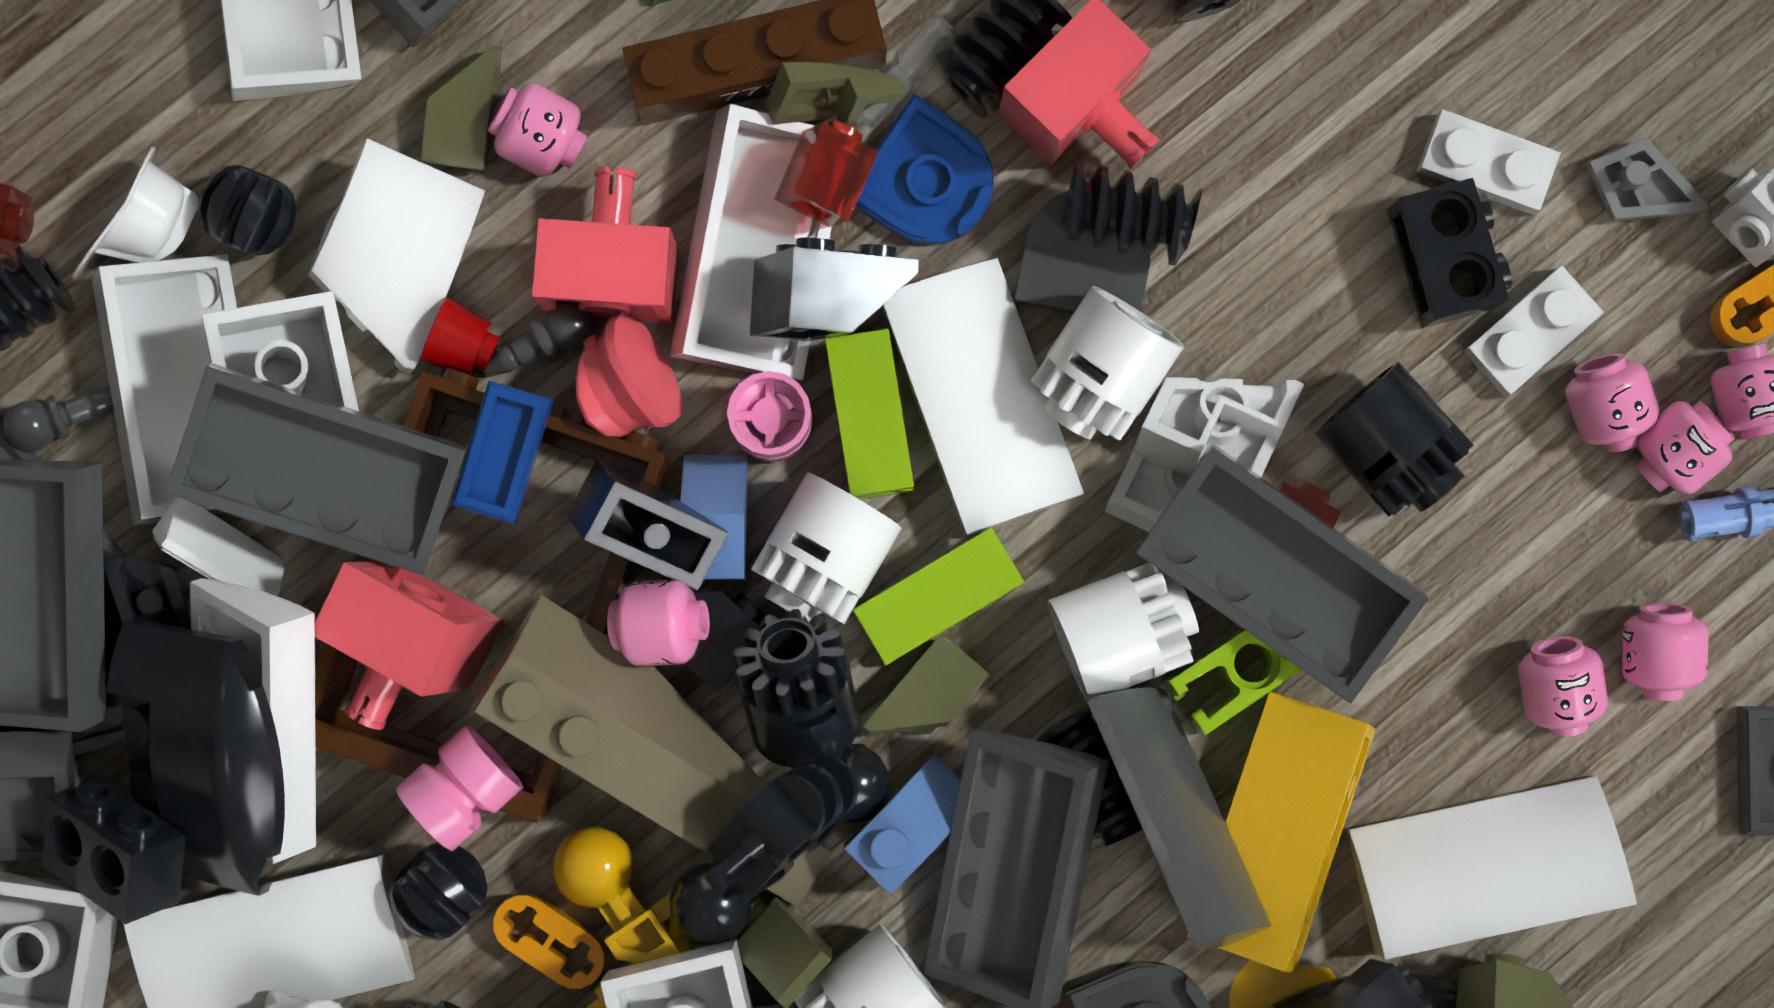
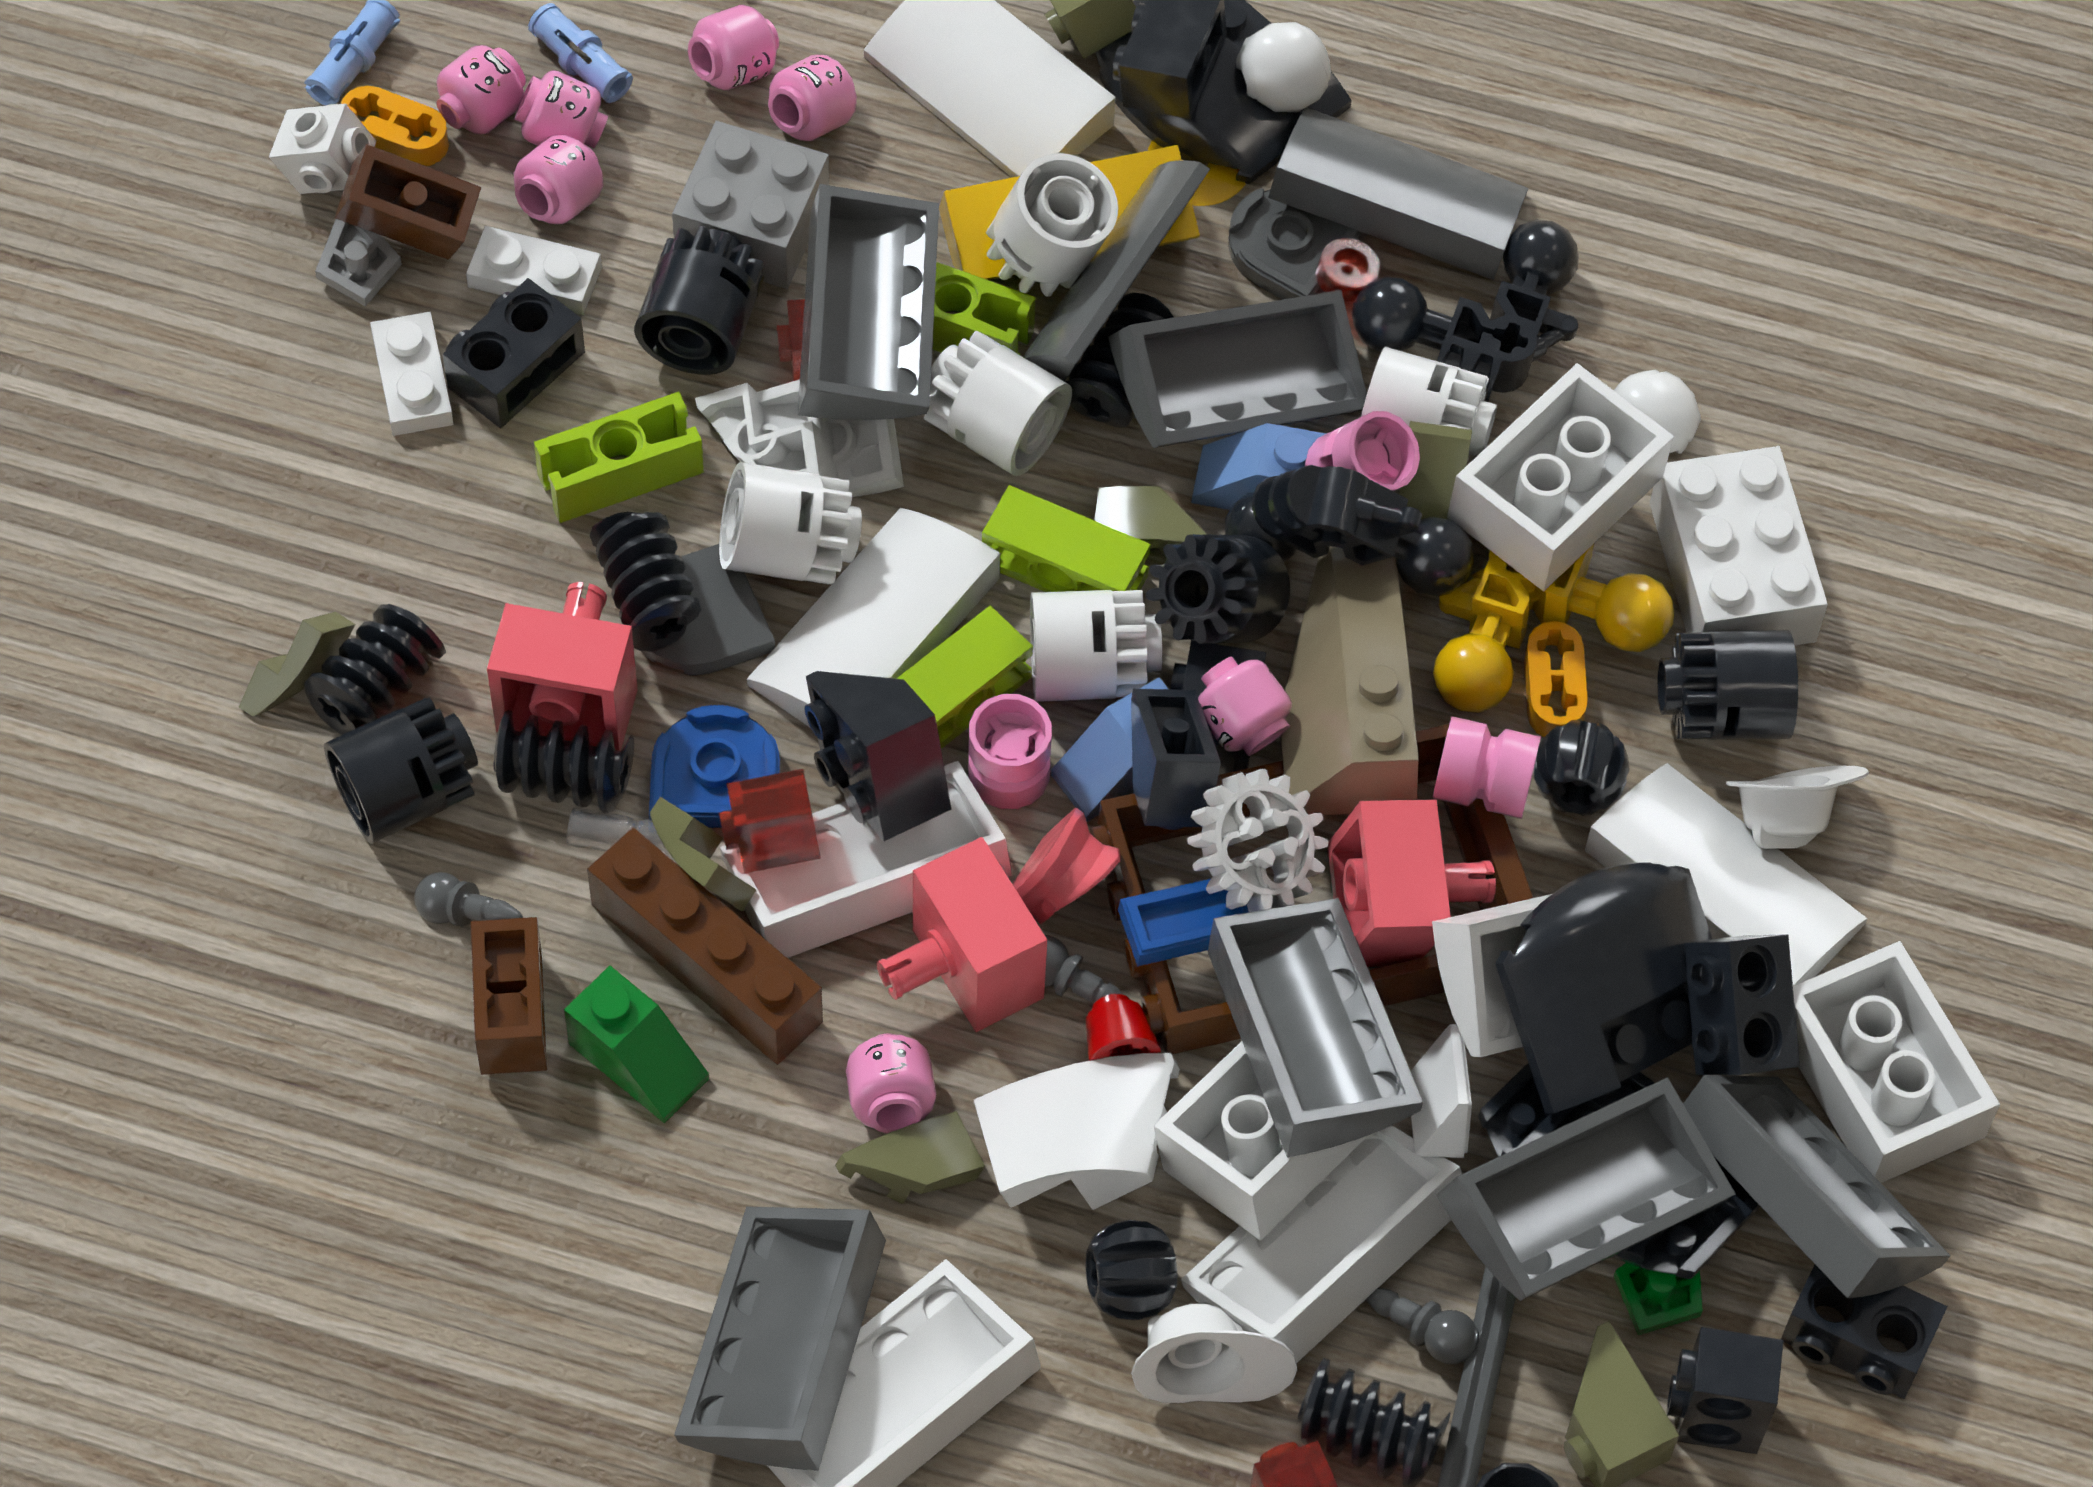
camera: 120 degrees left, 25 degrees down
(532, 564) = (1269, 808): none -> white gear
(825, 893) = (1373, 445): none -> bright pink wheel
(1247, 813) = (1053, 222): none -> white gear
(1303, 263) = (638, 432): none -> lime piece
(1477, 555) = (755, 192): none -> light grey brick
(1657, 241) = (408, 202): none -> reddish brown brick

